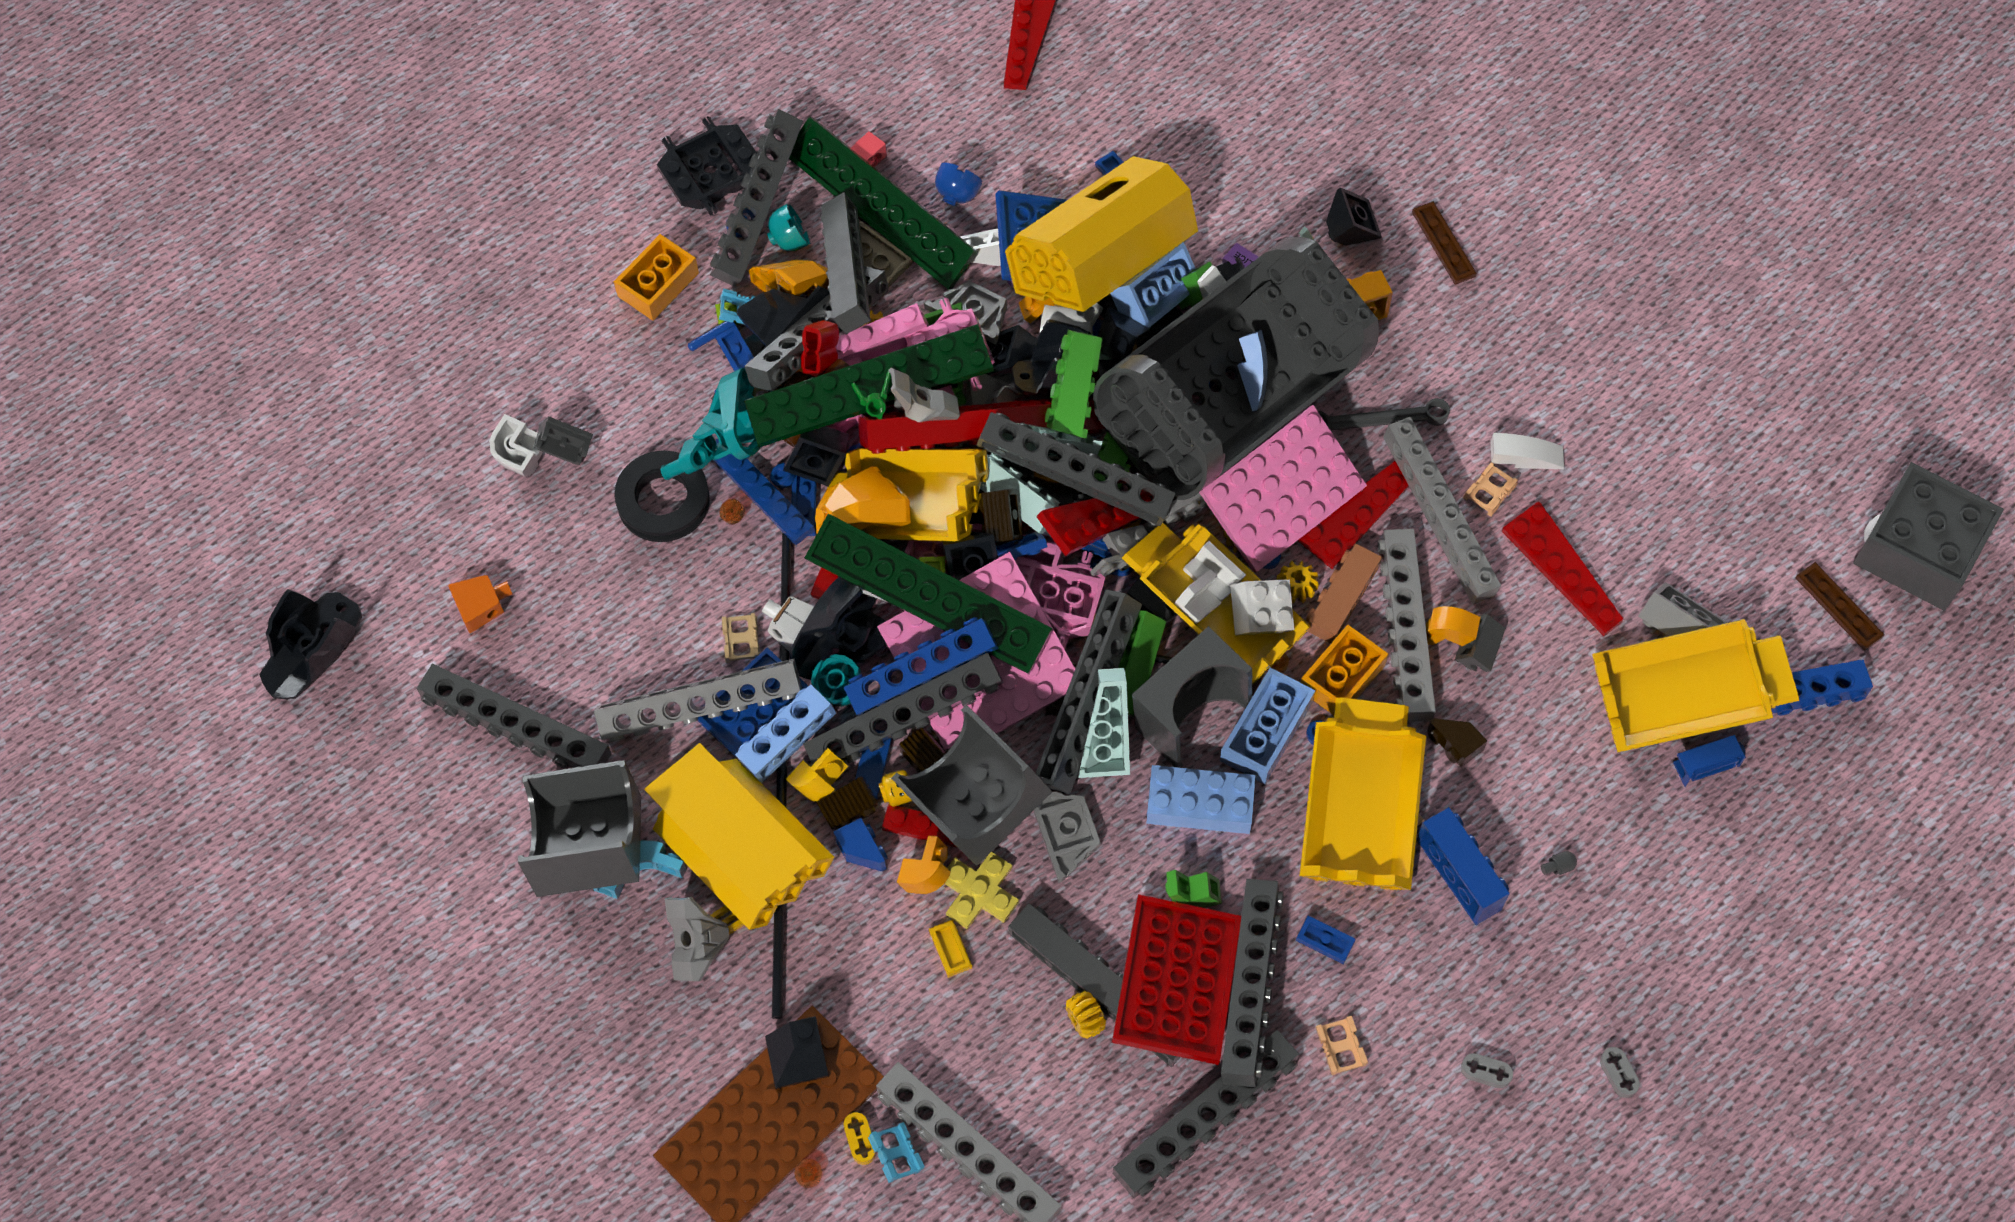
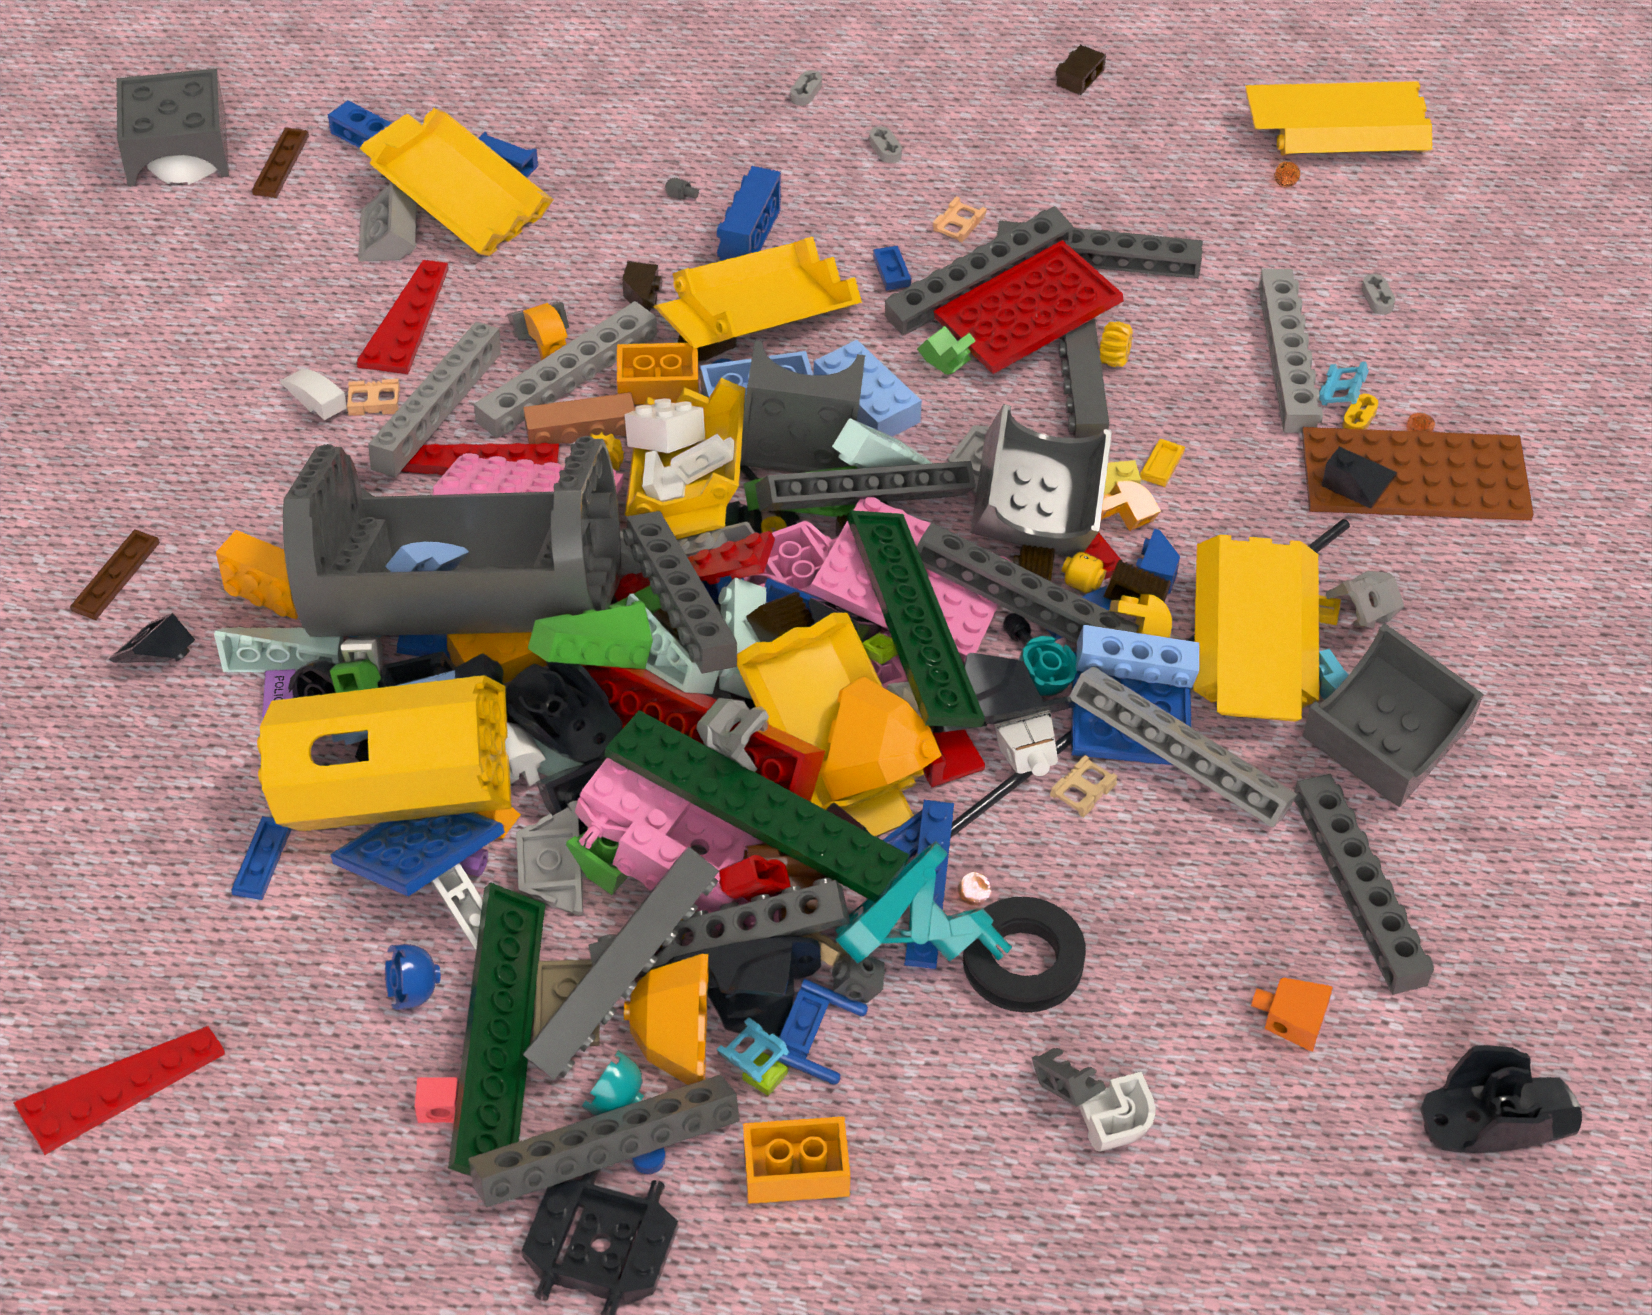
camera: 135 degrees left, 15 degrees down
(858, 686) = (982, 580): blue brick -> none
(875, 402) = (783, 751): green plant -> none

